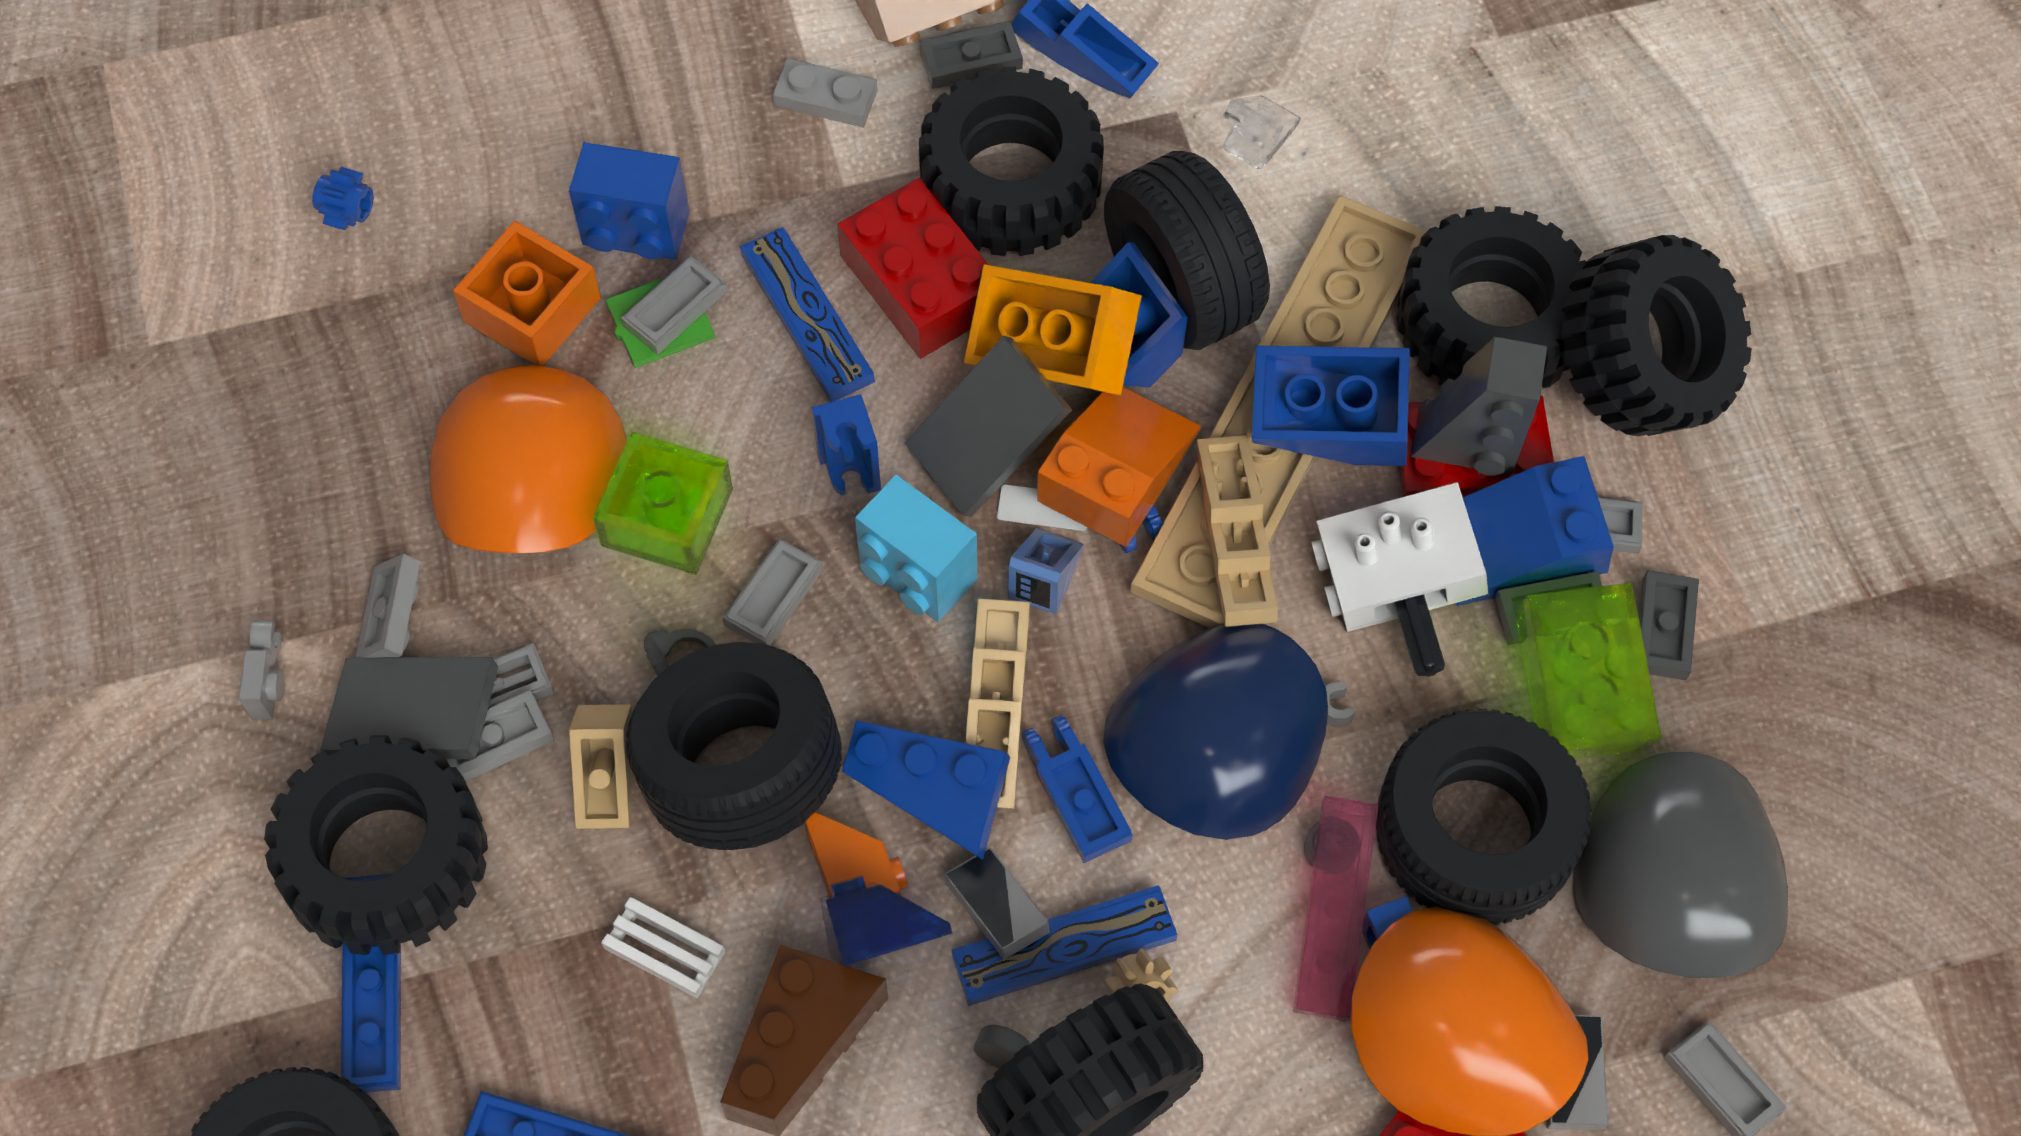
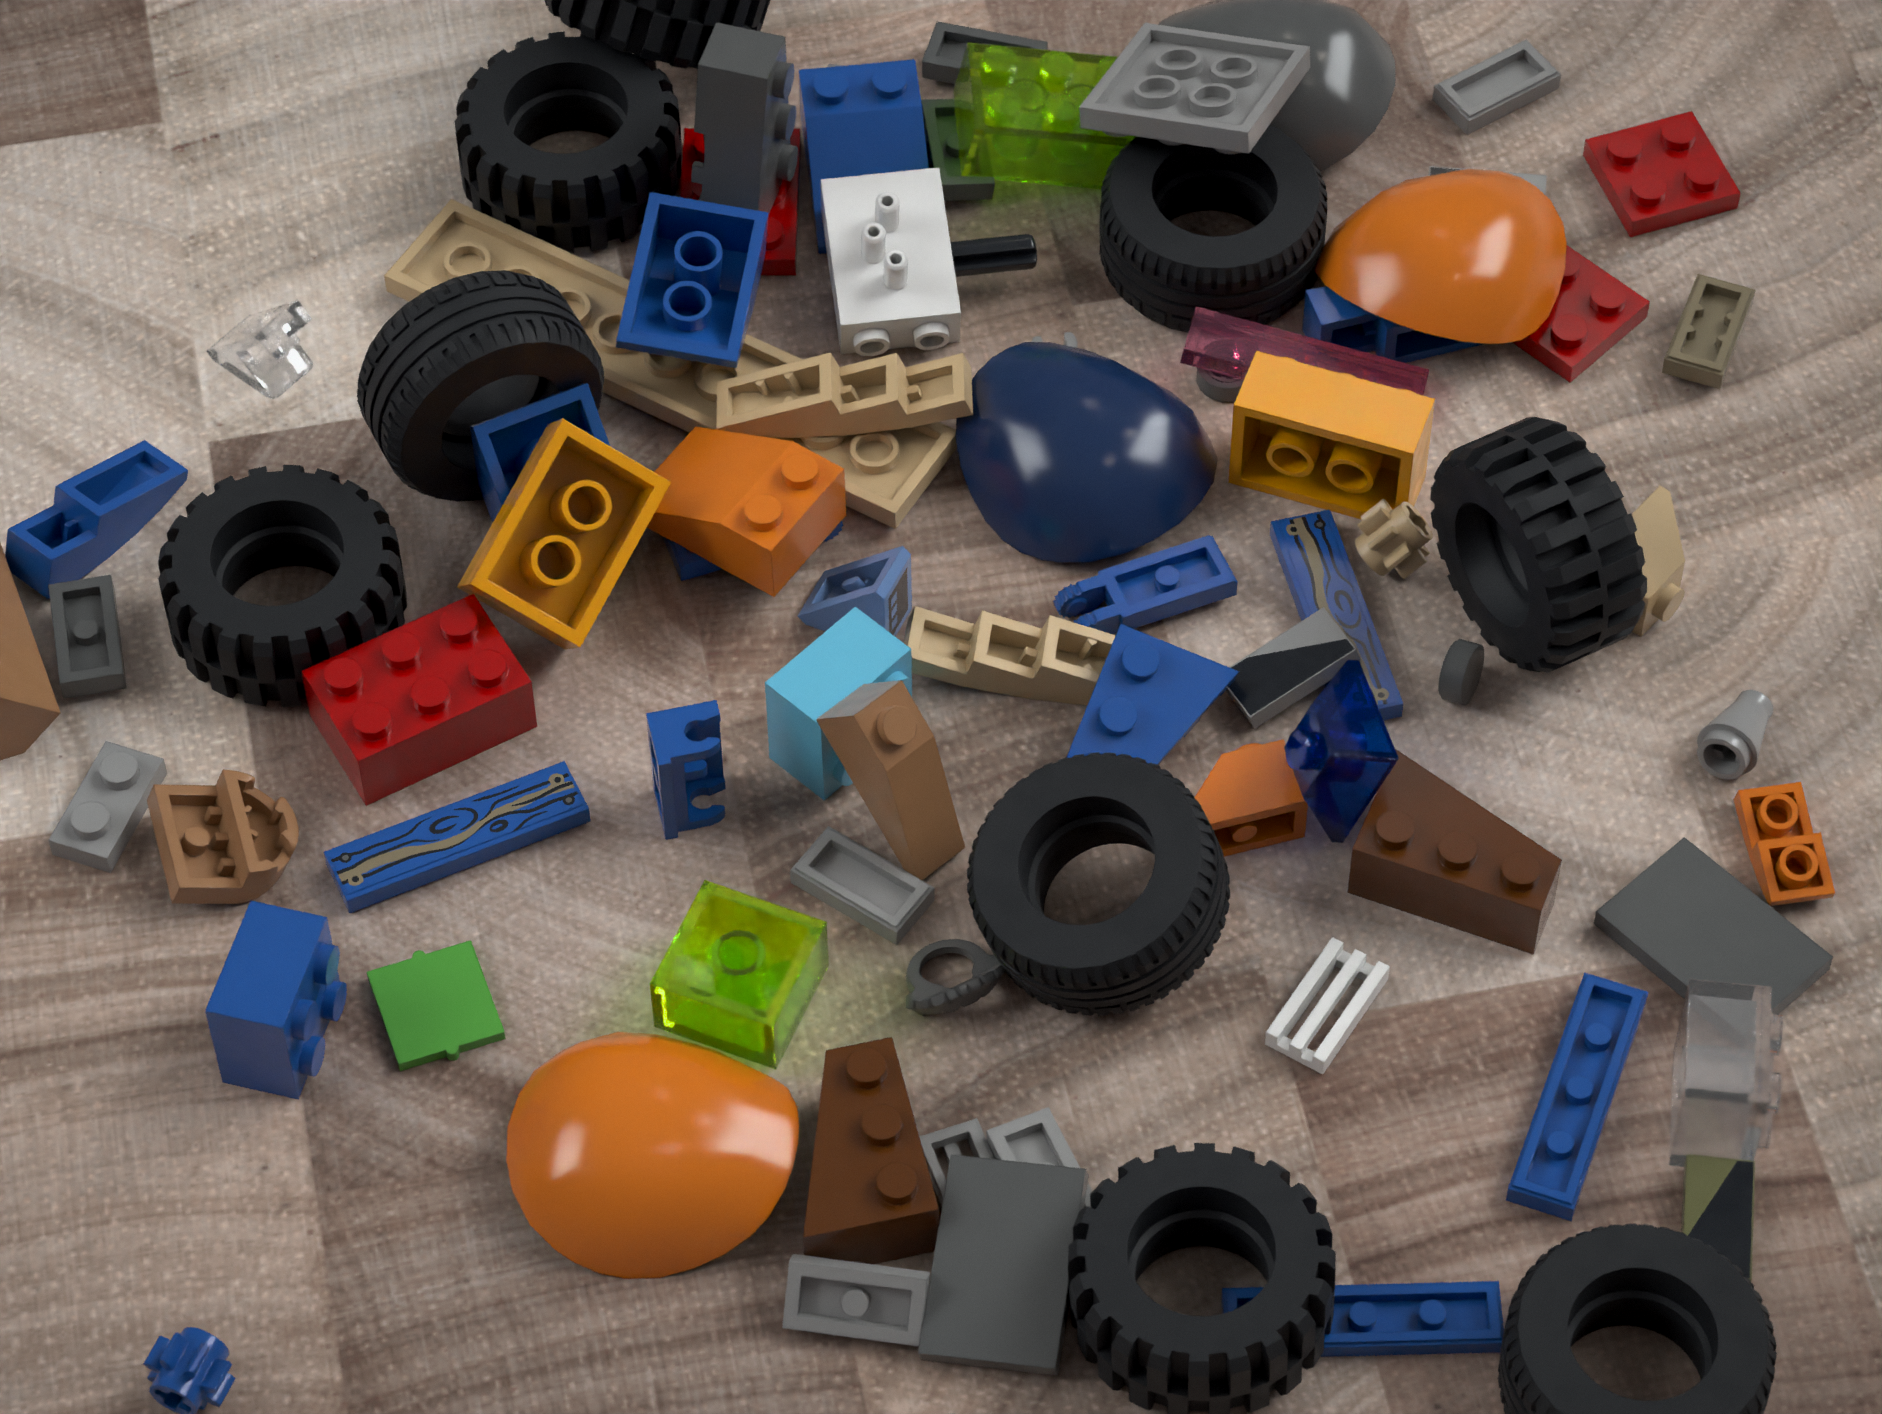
camera: 85 degrees left, 10 degrees down
(504, 604) = (868, 1166): none -> reddish brown wedge
(527, 294) = (397, 1129): orange brick -> none
(601, 766) = (1091, 1053): tan slope -> none
(674, 305) = (426, 977): light grey tile -> none
(790, 160) = (221, 839): none -> medium nougat slope
(831, 583) = (897, 773): none -> medium nougat slope
(988, 426) = (677, 619): dark grey tile -> none
(1021, 506) = (766, 619): white sticker -> none
(1235, 922) = (1328, 437): none -> light orange brick
(1597, 772) = (1195, 88): none -> light grey plate

